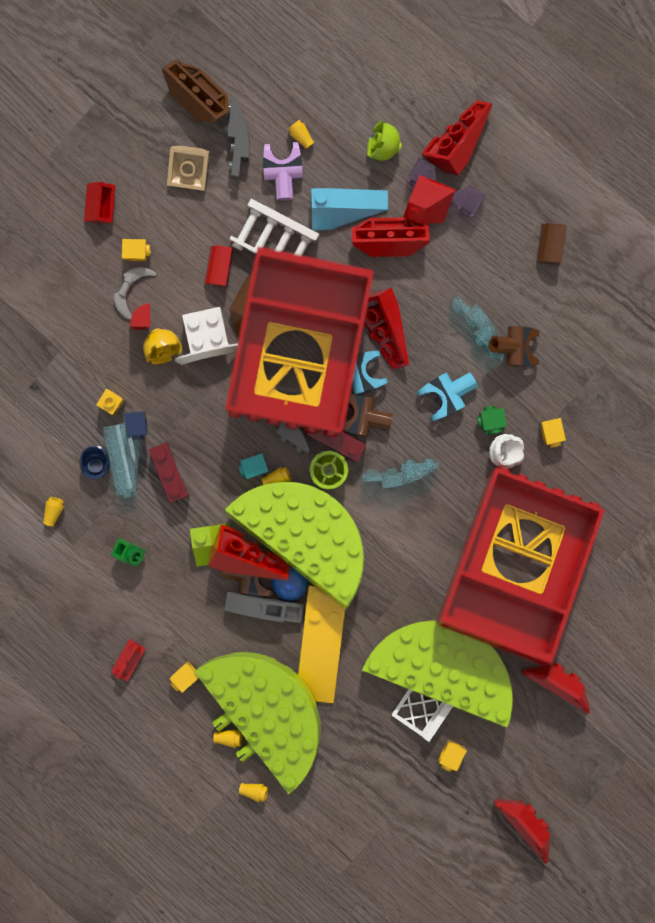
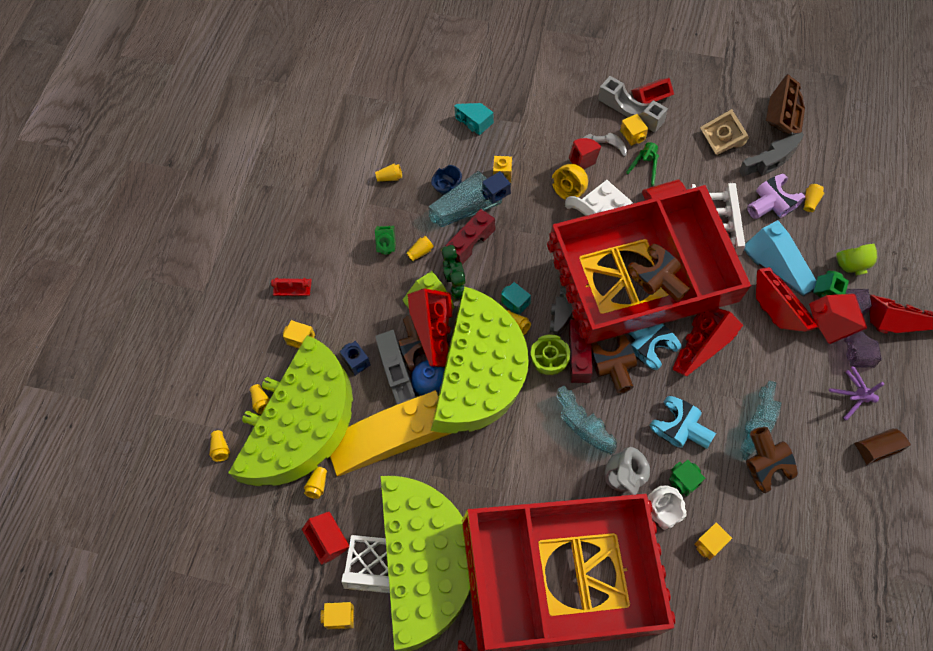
camera: 65 degrees right, 25 degrees down
(32, 393) = (475, 116): none -> teal slope
(97, 240) = (615, 95): none -> light grey arch
(153, 523) = (420, 248): none -> yellow cone
(168, 252) = (648, 153): none -> green plant
(201, 510) = (453, 271): none -> dark green gear
(242, 638) = (358, 364): none -> dark blue brick
(326, 344) = (660, 275): none -> reddish brown connector
(333, 724) = (315, 485): none -> yellow cone
(383, 737) = (325, 537): none -> red brick
(397, 185) = (830, 284): none -> green brick
(465, 467) = (627, 470): none -> light grey piece
(503, 228) = (862, 394): none -> medium lavender plant

